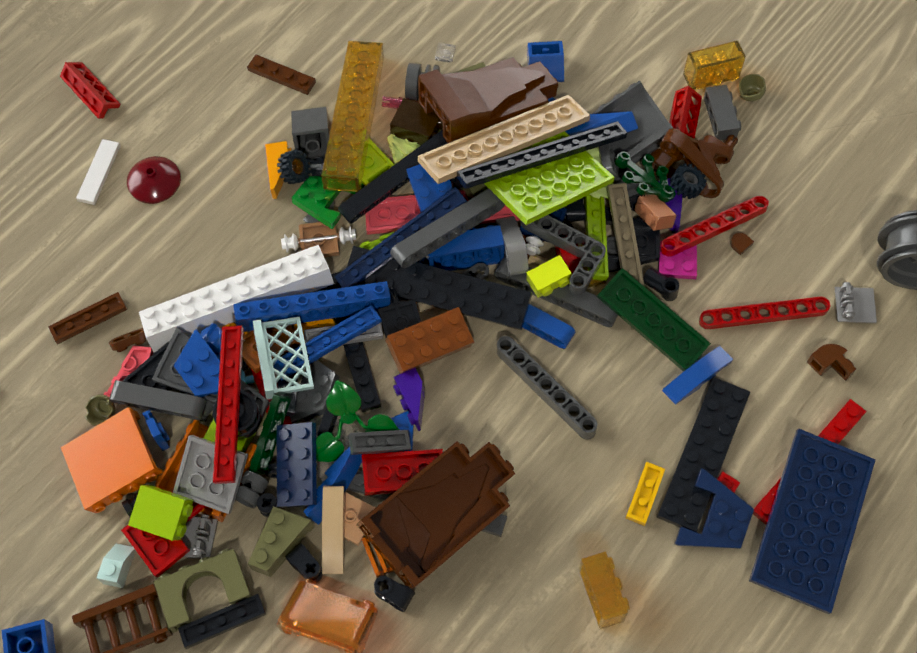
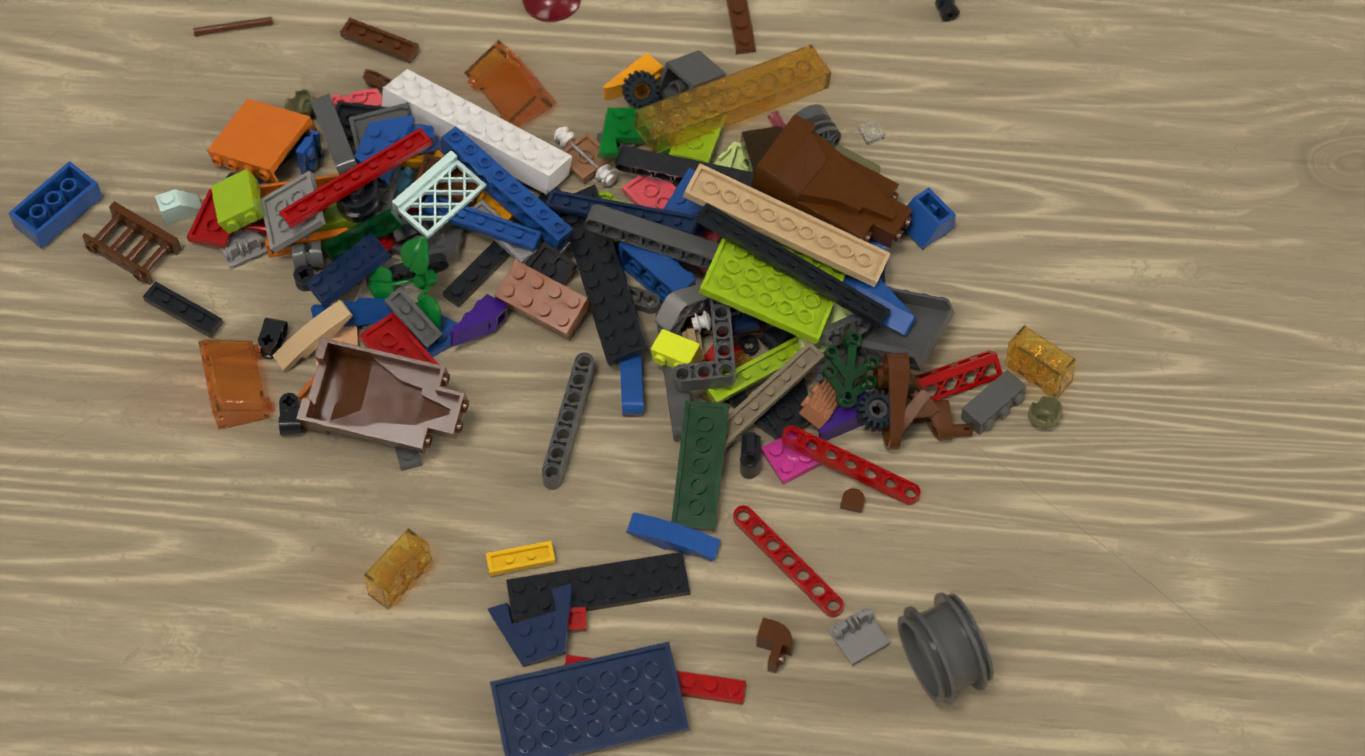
camera: 55 degrees right, 5 degrees down
(174, 587) = (186, 258): olive arch -> none
(213, 252) = (509, 85): none -> clear orange windscreen
(278, 538) = (276, 301): olive wedge -> none

